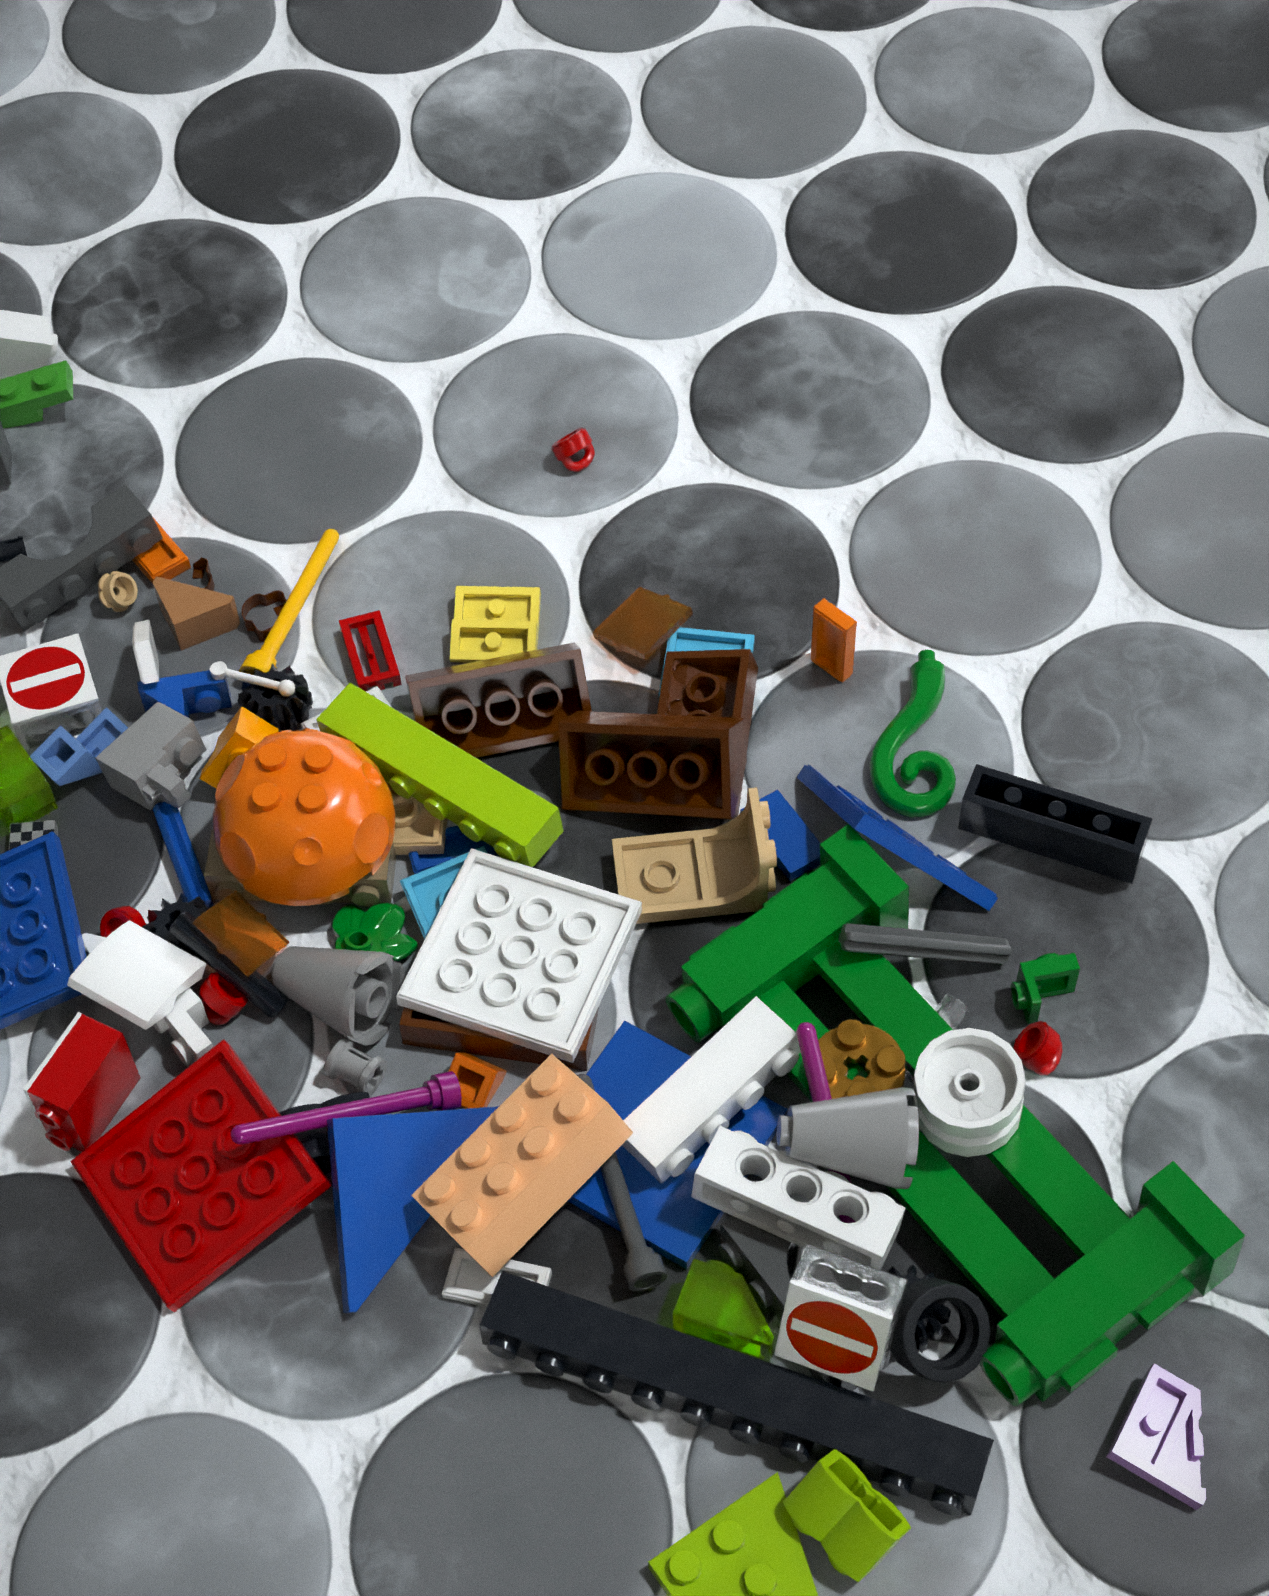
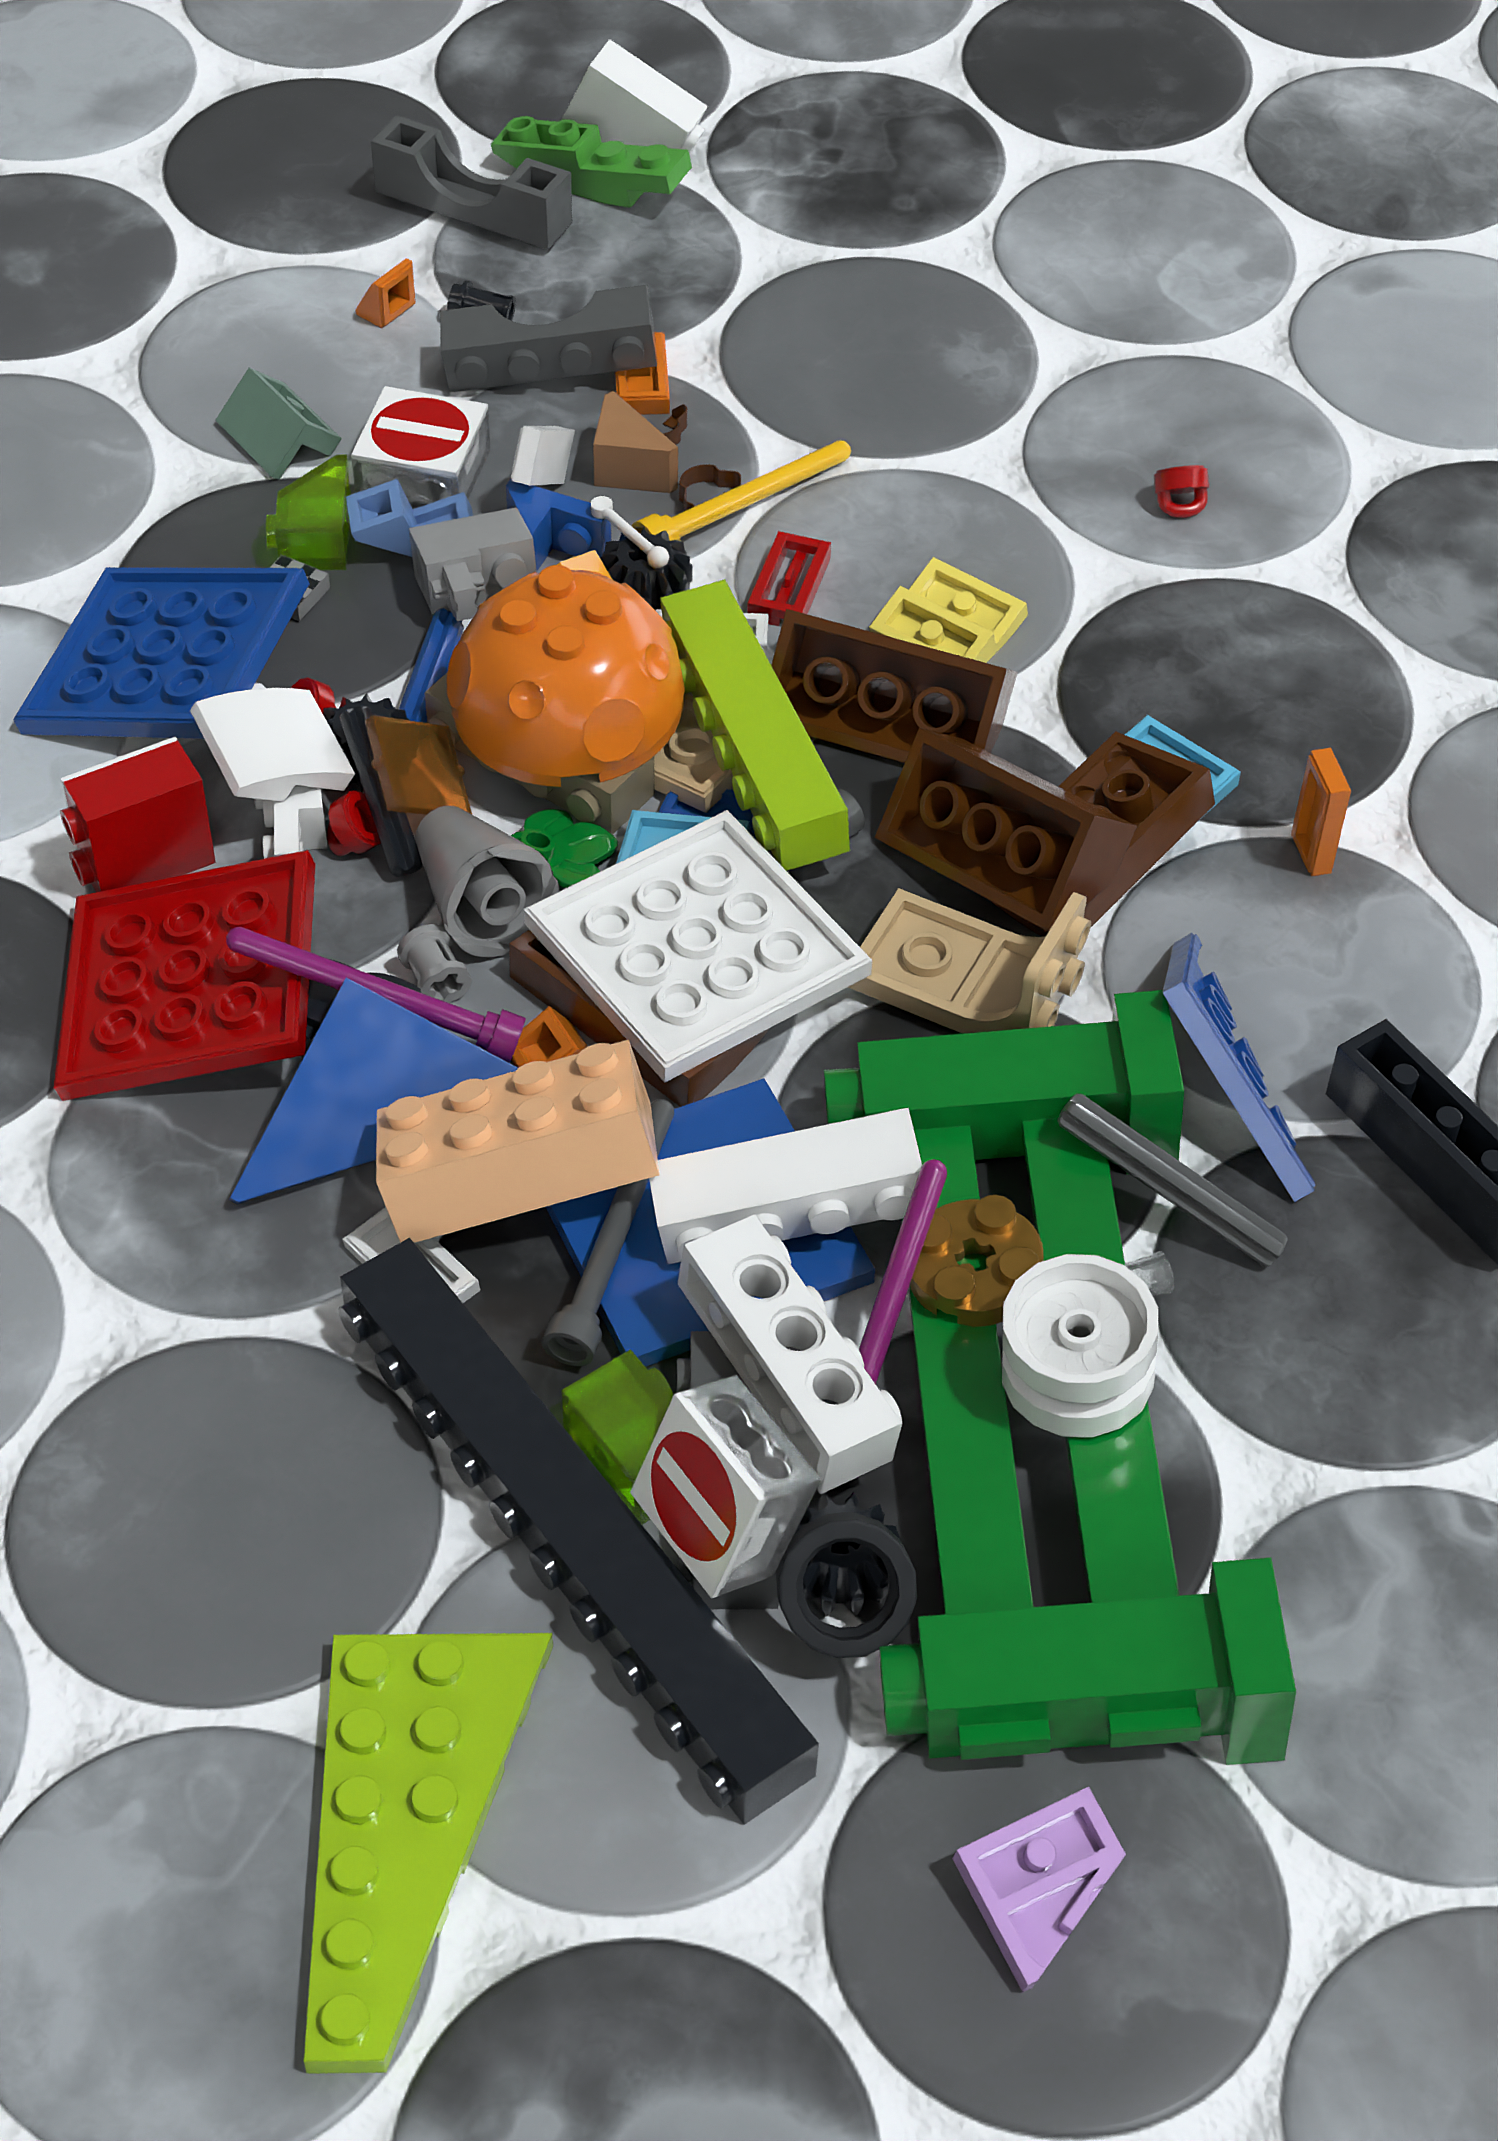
camera: 30 degrees right, 5 degrees down
(124, 587) = (581, 393): tan plate -> none
(642, 623) = (1118, 697): clear orange piece -> none
(794, 842) = (1108, 970): blue tile -> none
(846, 1515) = (584, 1719): lime brick -> none
(856, 1135) = (901, 1310): light grey cone -> none
(926, 692) = (1392, 938): green plant -> none
(1039, 1048) = (1229, 1369): red tile -> none
(1042, 978) = (1296, 1302): green bracket -> none

